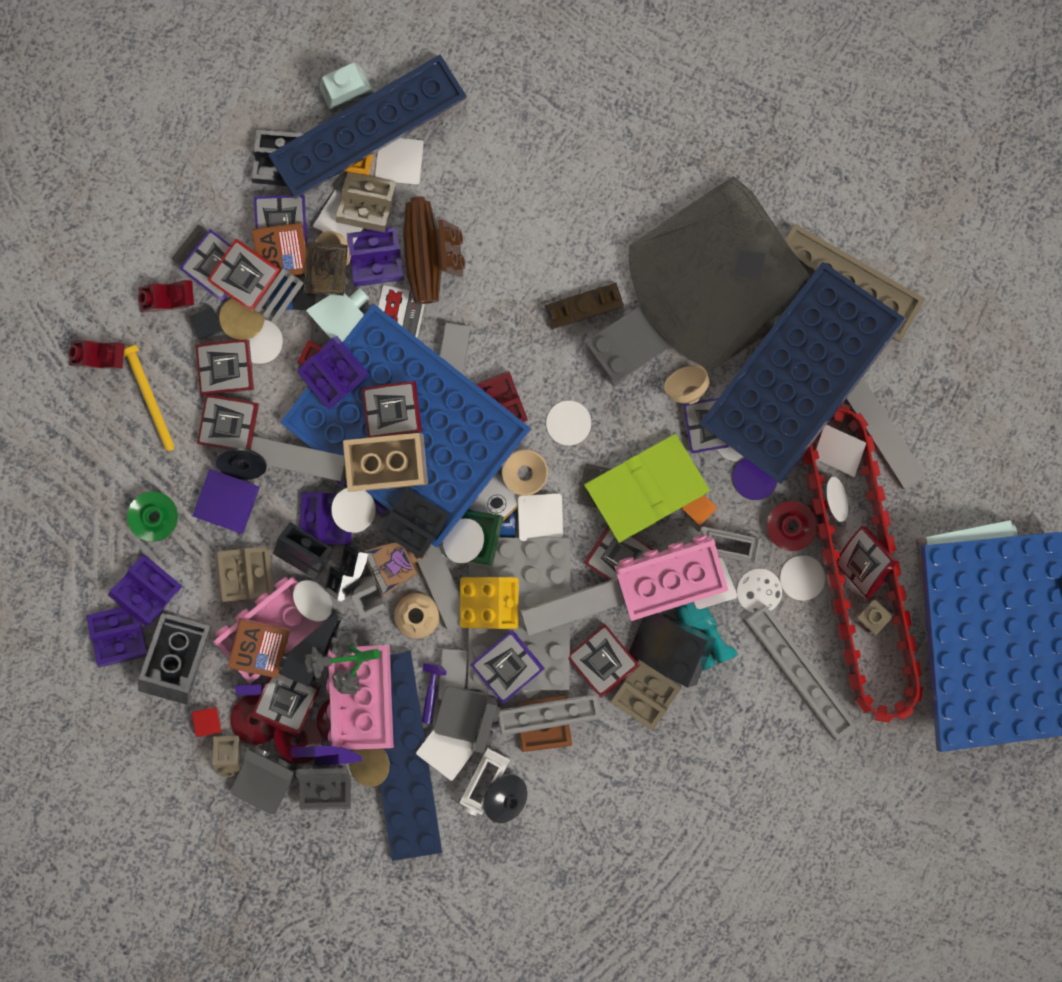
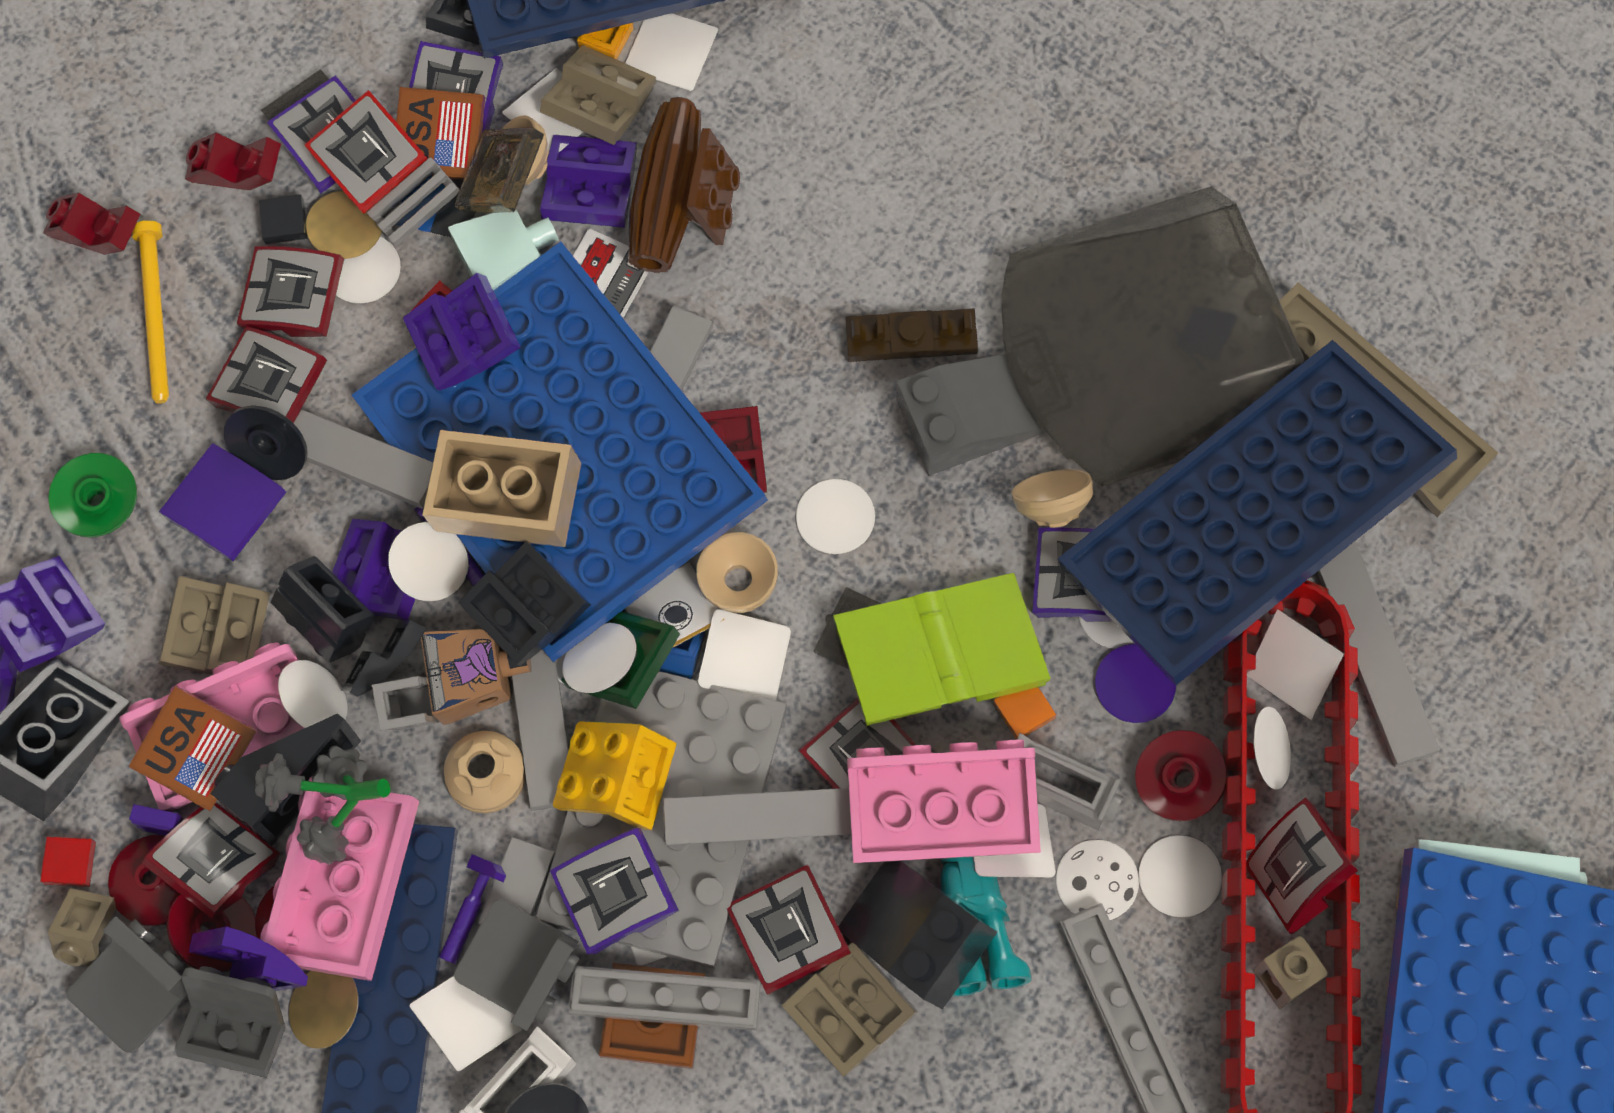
camera: 20 degrees right, 15 degrees down
(392, 409) = (542, 404): slope -> none

